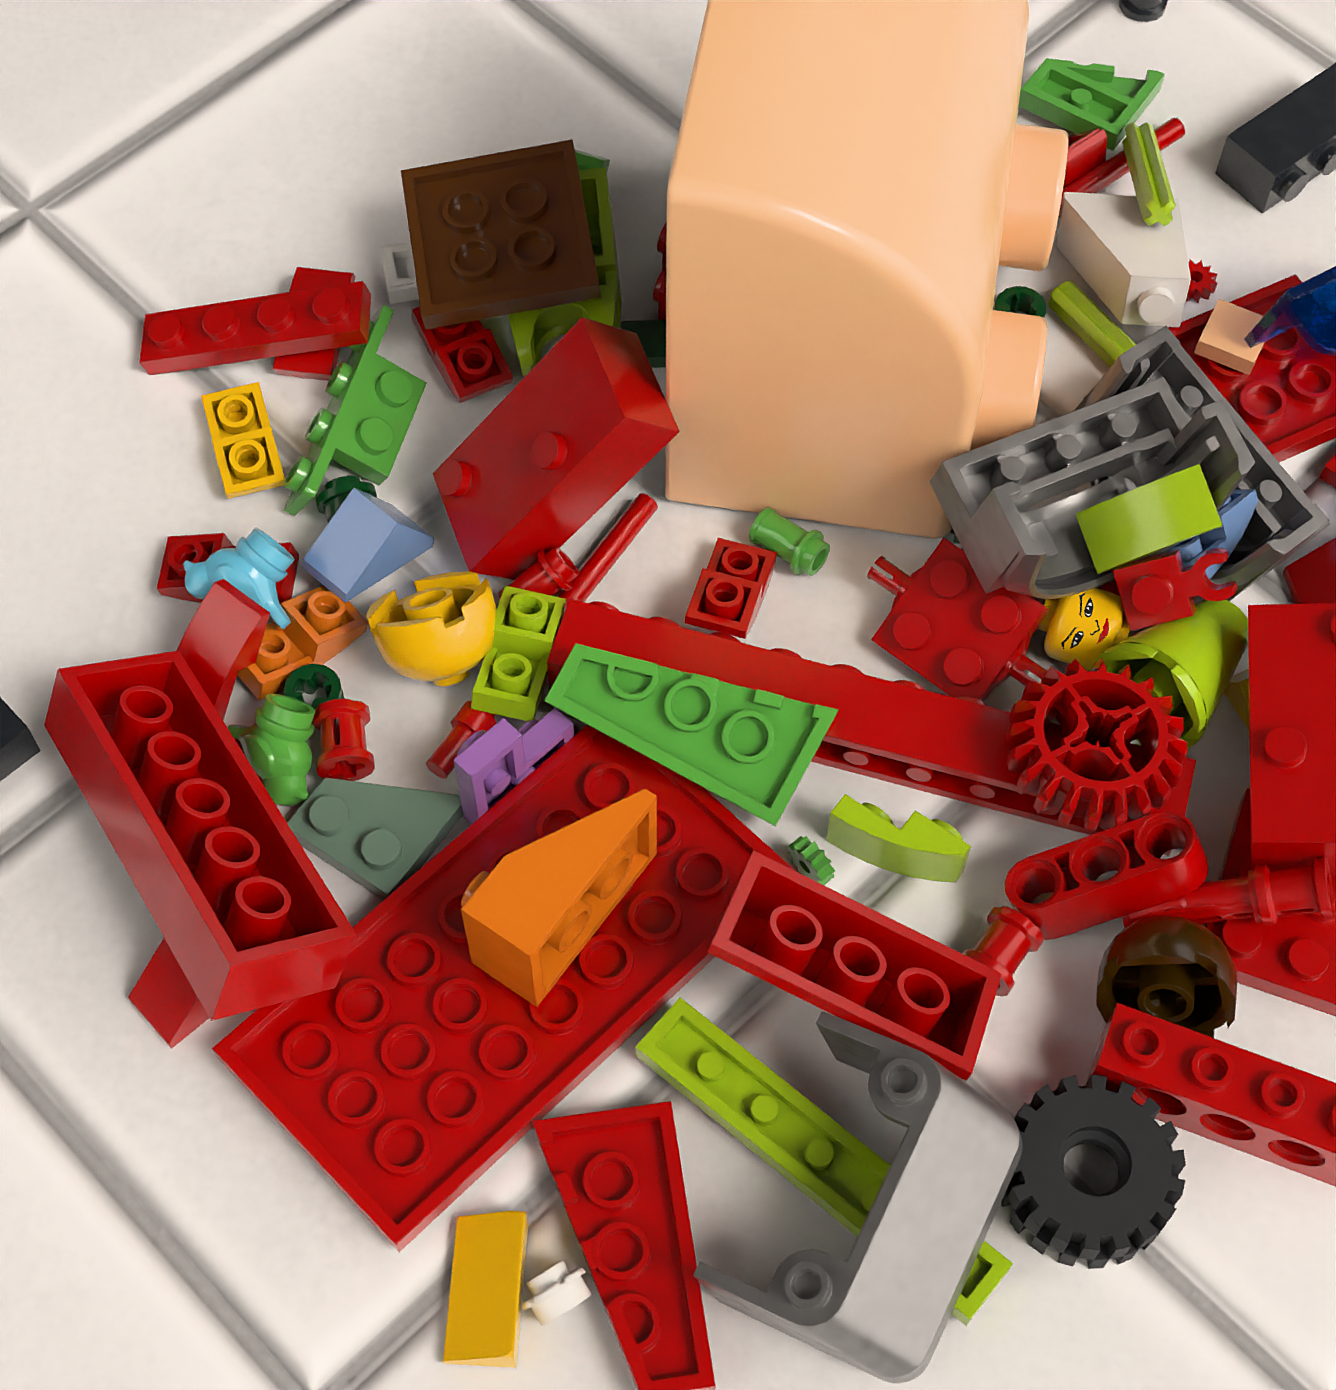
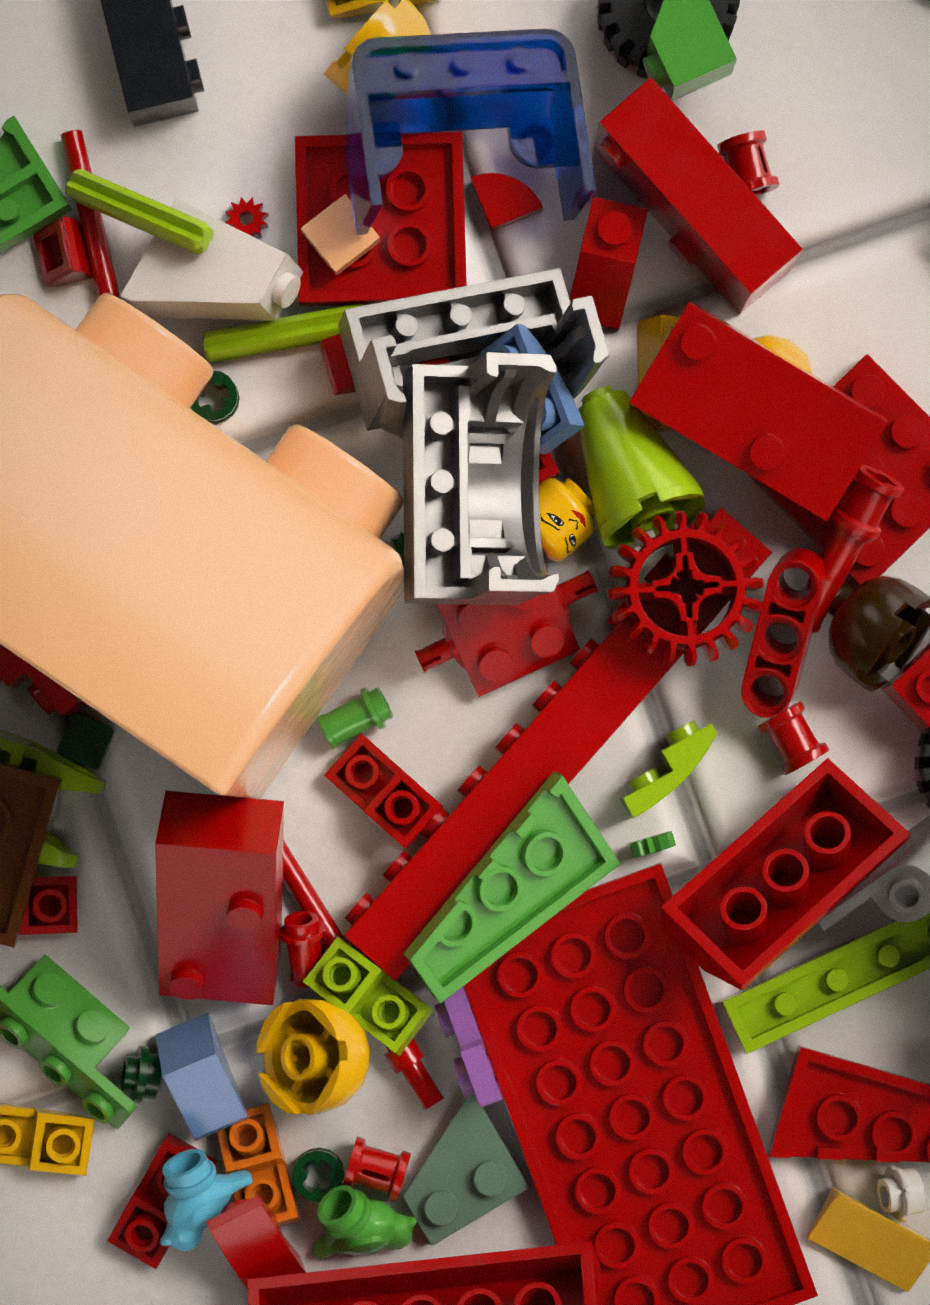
camera: 65 degrees left, 25 degrees up
(555, 893) = (627, 1086): orange slope -> none
(1149, 519) = (529, 444): lime slope -> none
(1163, 589) = (576, 454): red plate -> none

